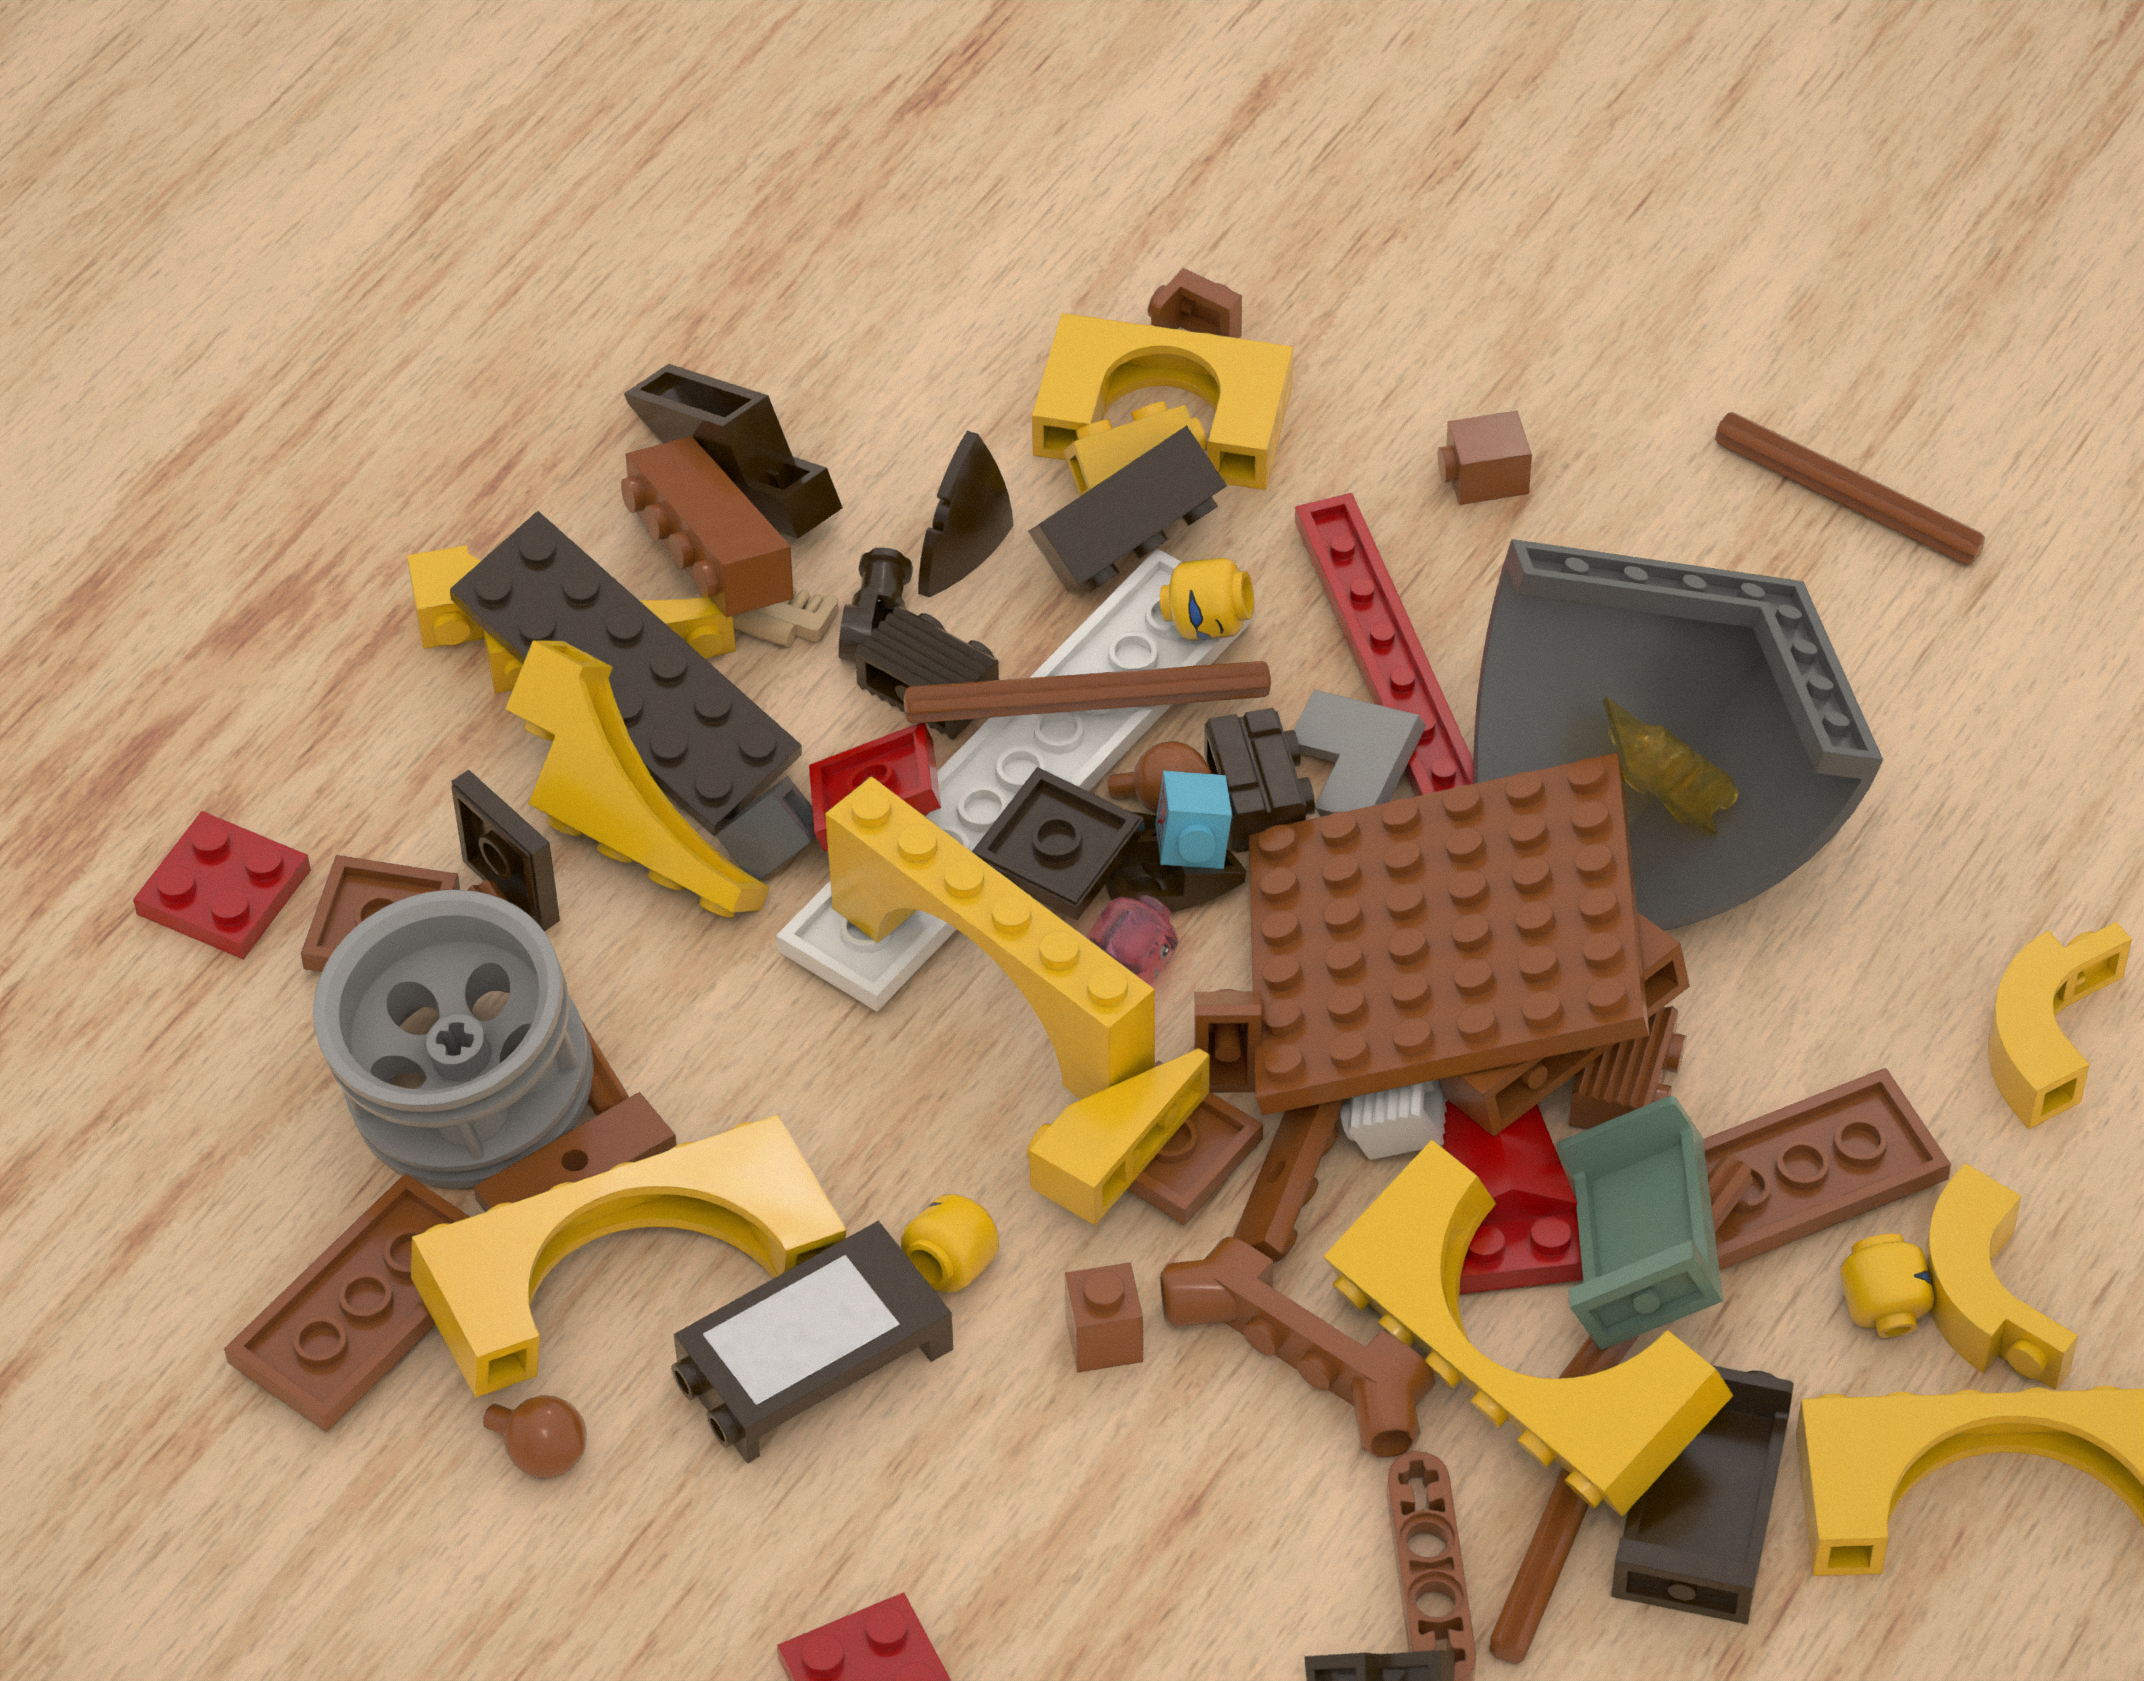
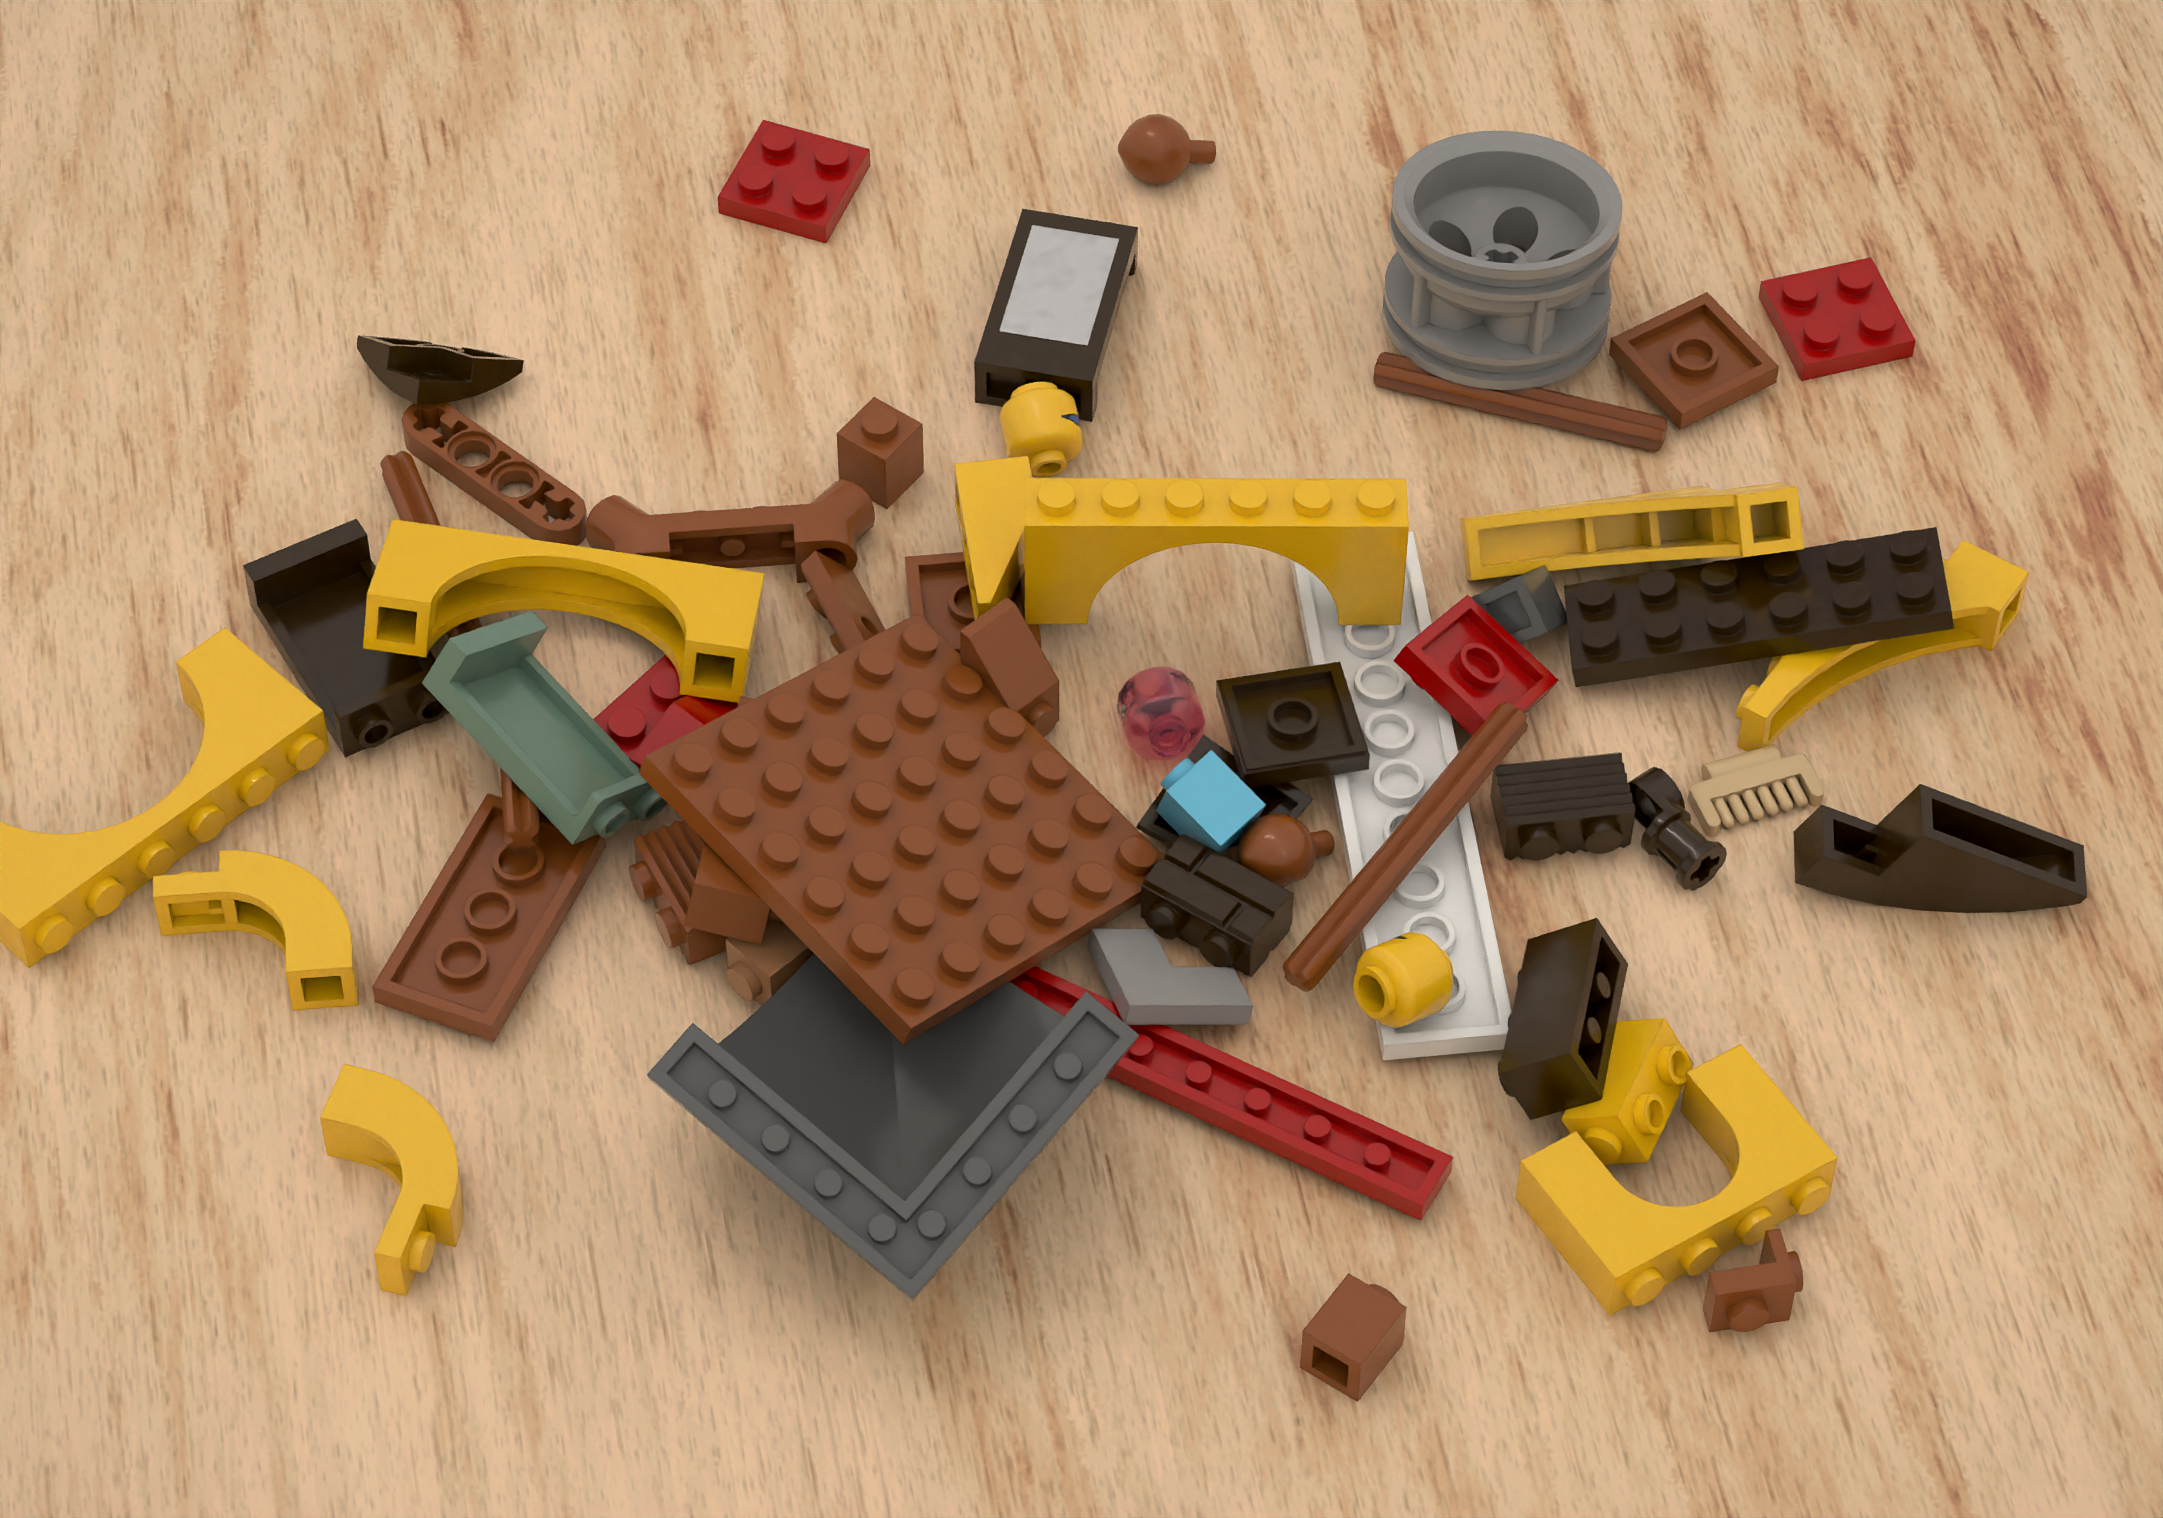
camera: 135 degrees right, 0 degrees up
(346, 1312) = (1363, 129): dark orange plate -> none
(505, 849) = (1658, 425): dark brown tile -> none
(616, 1136) = (1349, 309): dark orange tile -> none
(708, 526) = (1838, 744): dark orange brick -> none
(734, 1186) = (1221, 359): yellow arch -> none
(968, 520) = (1686, 930): dark brown brick -> none
(1669, 769) = (889, 1096): clear yellow hinge -> none
(1887, 1285) = (348, 861): yellow head -> none

